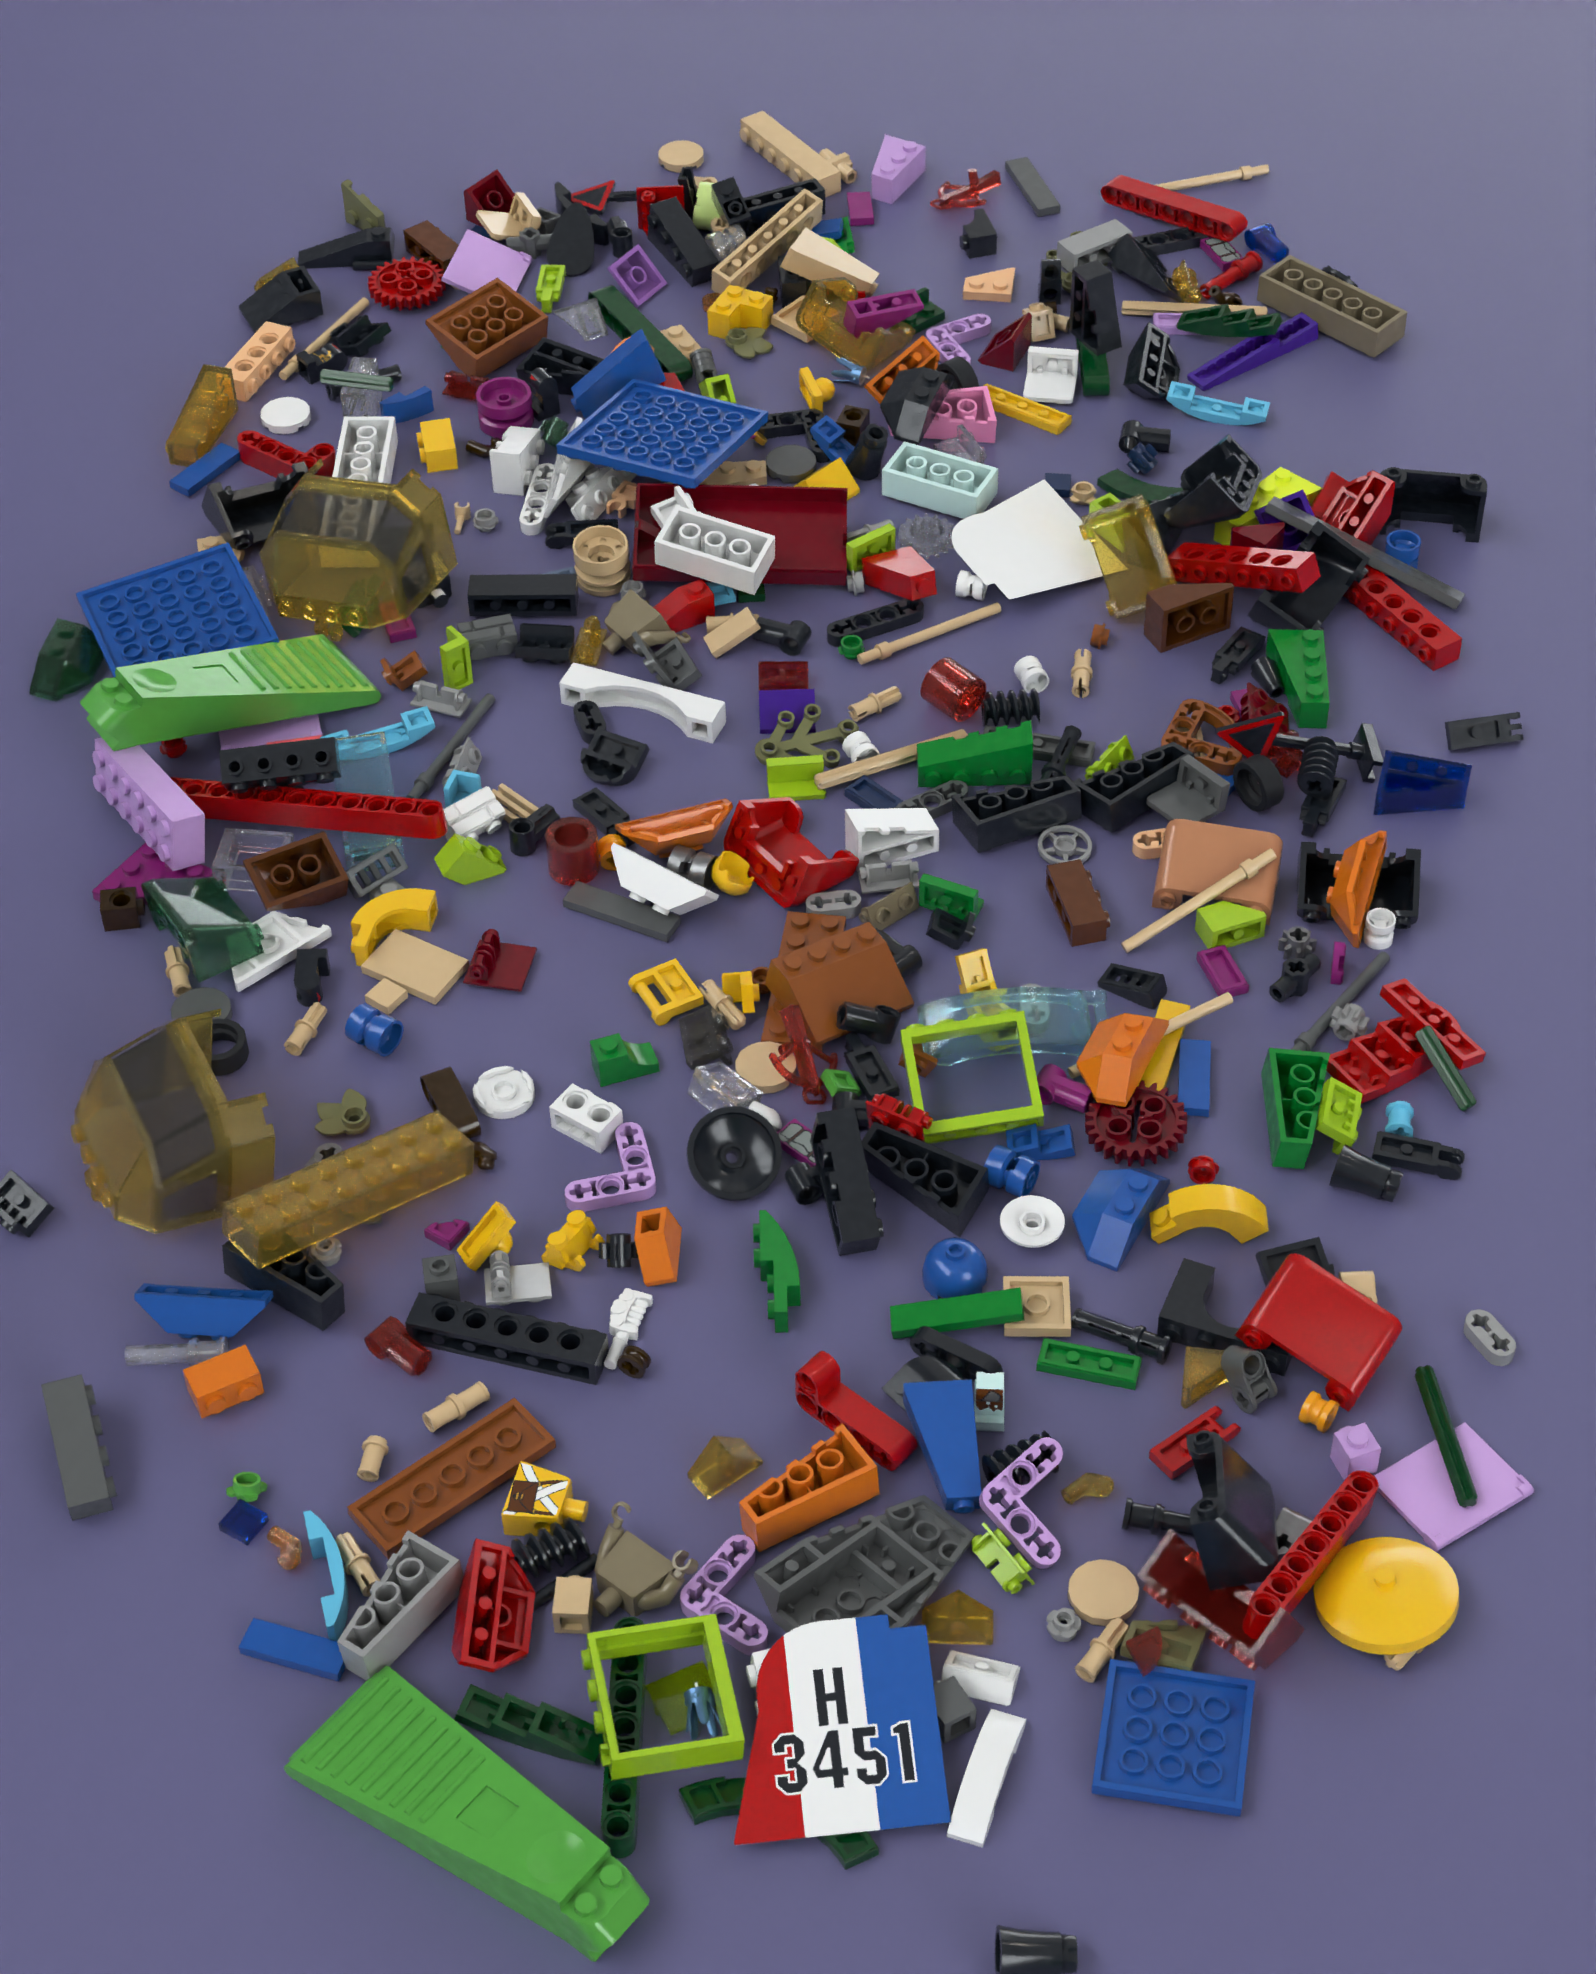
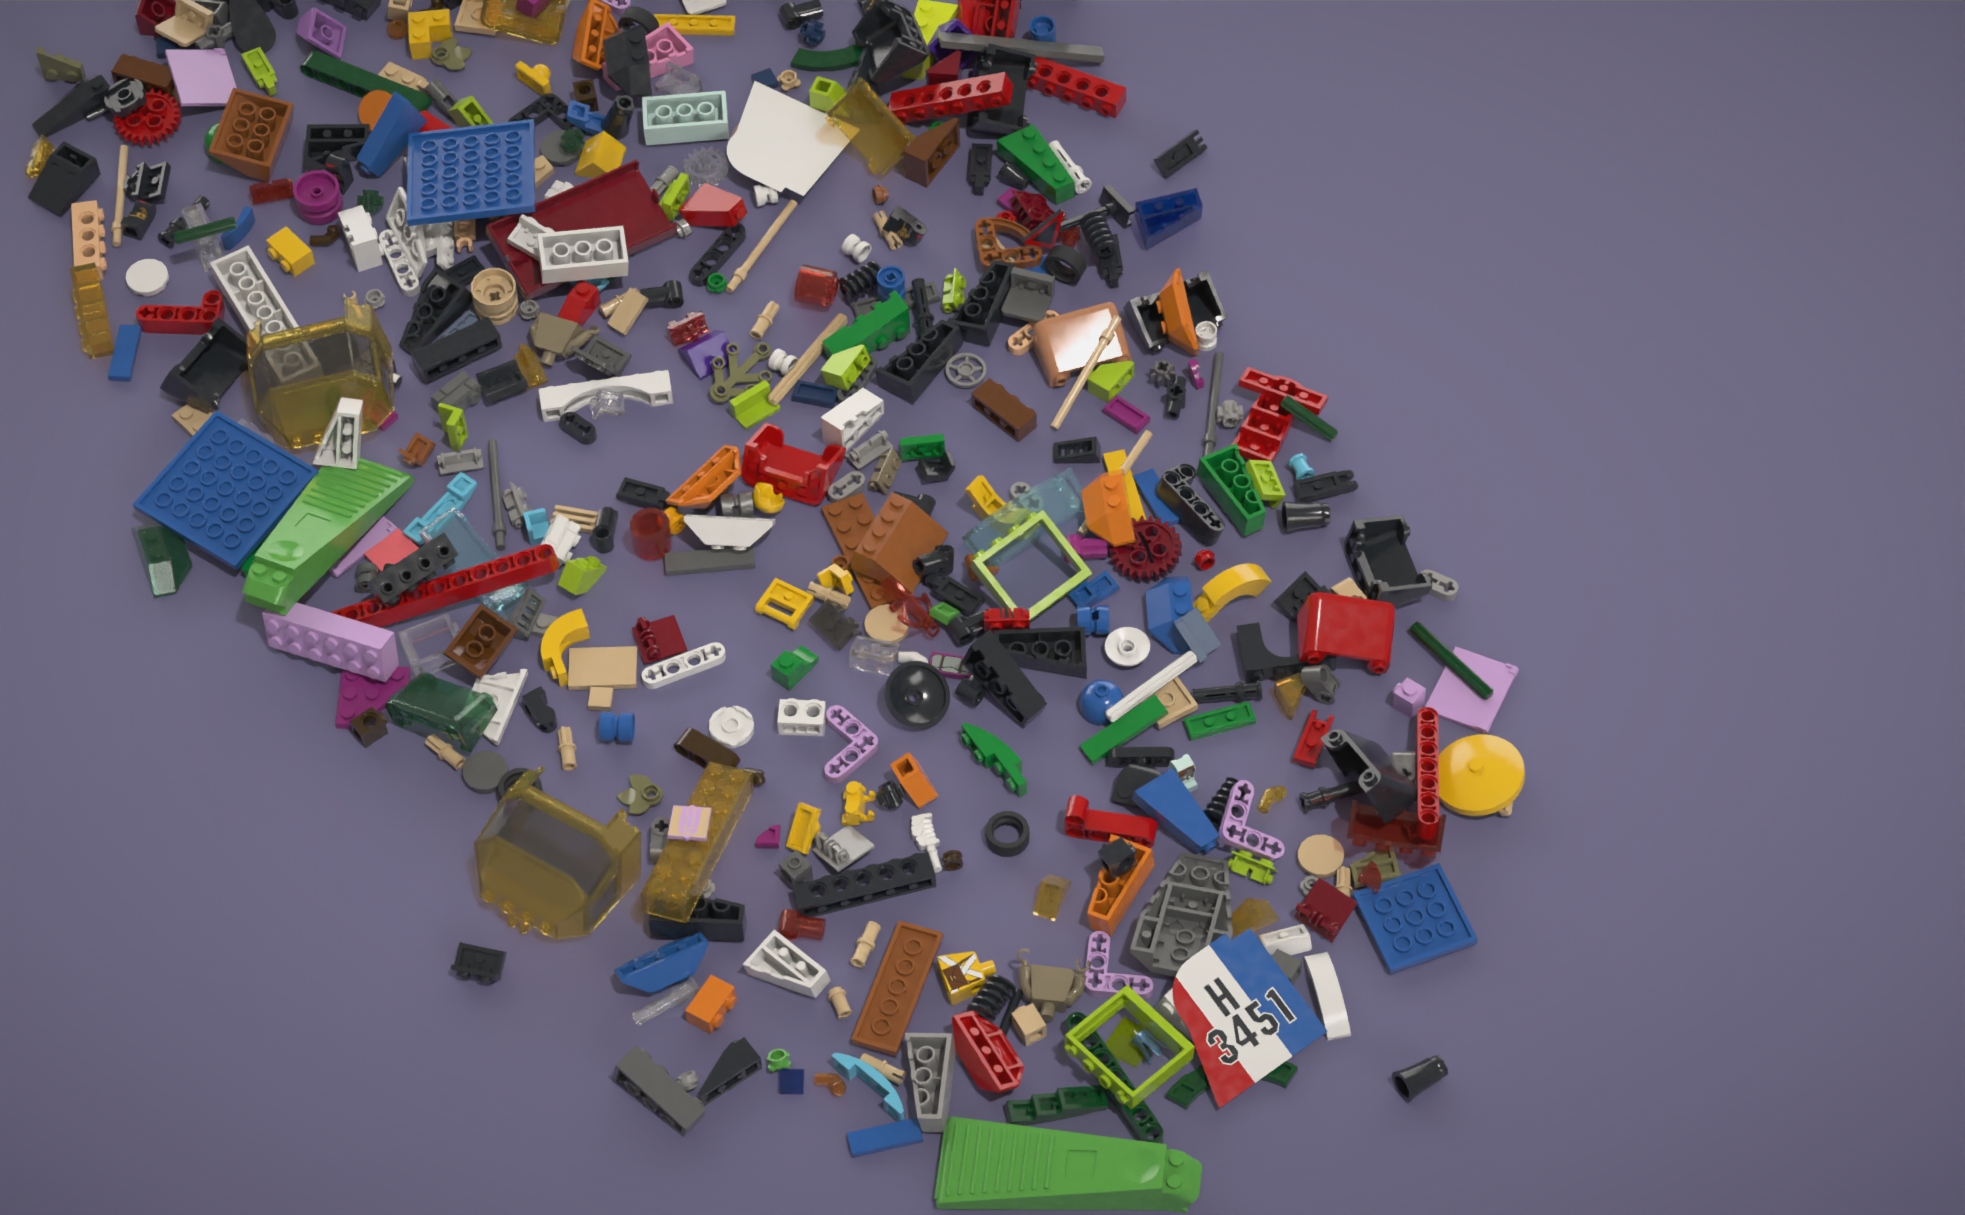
camera: 30 degrees left, 10 degrees up
(126, 1455) = (689, 1079): none -> light grey plate
(182, 1468) = (733, 1067): none -> black slope
(325, 612) = (342, 437): none -> white wedge
(341, 1381) = (786, 966): none -> white wedge
(346, 1157) = (689, 823): none -> piece
(395, 253) = (123, 106): none -> black plate
(504, 999) = (685, 668): none -> white beam
(538, 551) = (438, 306): none -> black wedge
(585, 319) = (312, 88): clear slope -> none
(613, 758) = (618, 449): black slope -> none
(638, 710) = (607, 403): none -> clear bracket
(722, 1344) = (1007, 818): none -> black tyre
(801, 454) = (572, 140): none -> clear green gear
(822, 1452) = (1117, 857): none -> black brick
(856, 376) = (548, 49): flat silver piece -> none
(923, 779) = (845, 367): none -> lime slope
(1025, 1277) = (1151, 686): none -> white axle
(1042, 713) = (890, 279): none -> blue wheel
(1057, 1661) = (1325, 909): none -> dark red hinge
(1101, 672) = (905, 225): none -> black leg
(1125, 1245) = (1197, 634): none -> sand blue panel
(1219, 1079) = (1183, 500): none -> black beam
(1318, 1411) = (1372, 683): light orange wheel -> none
(1338, 674) = (1074, 171): none -> white pin
(1433, 1272) = (1382, 561): none -> black windscreen

